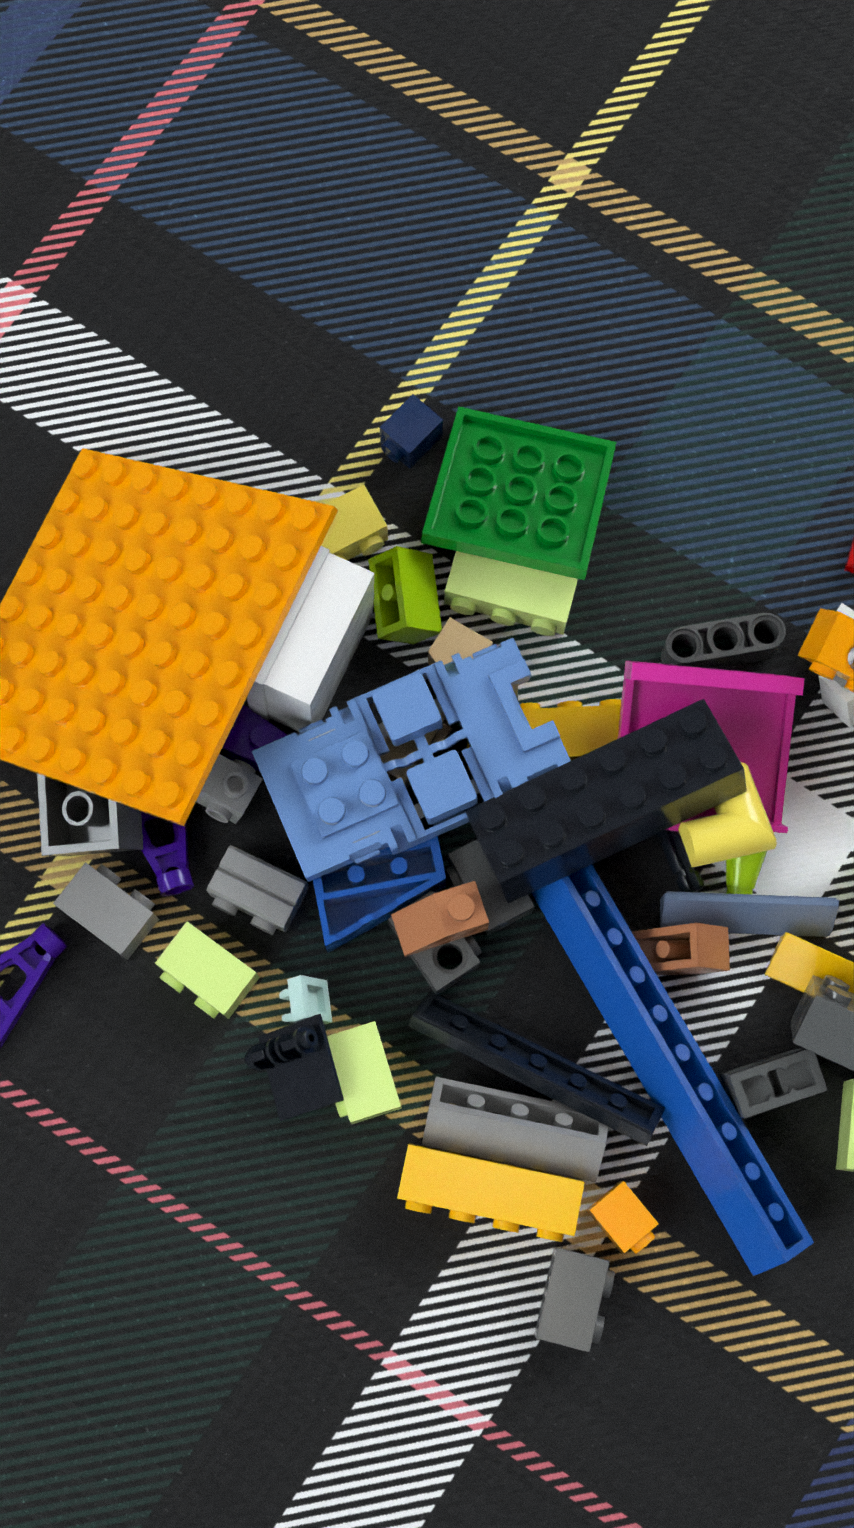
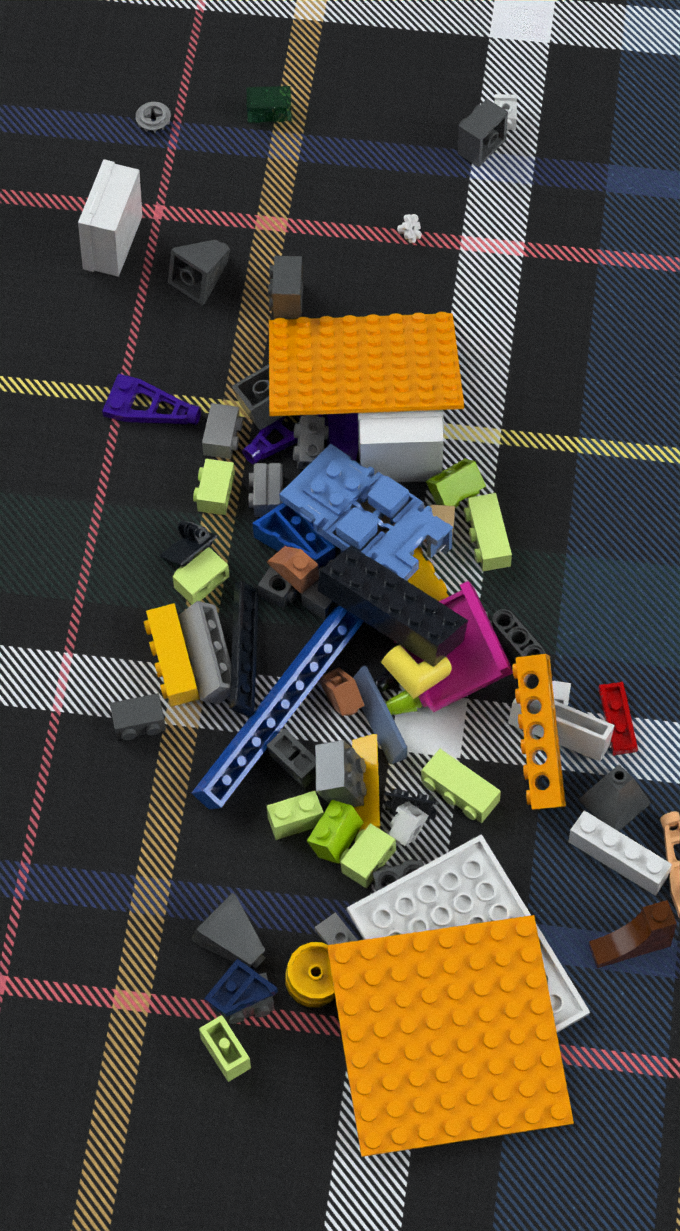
camera: 65 degrees right, 15 degrees down
(307, 998) = (226, 537): light aqua tile -> none
(356, 526) = (475, 441): light yellow brick -> none
(410, 432) = (547, 449): dark blue brick -> none
(519, 493) = (542, 509): green plate -> none
(623, 1218) = (189, 722): light orange brick -> none

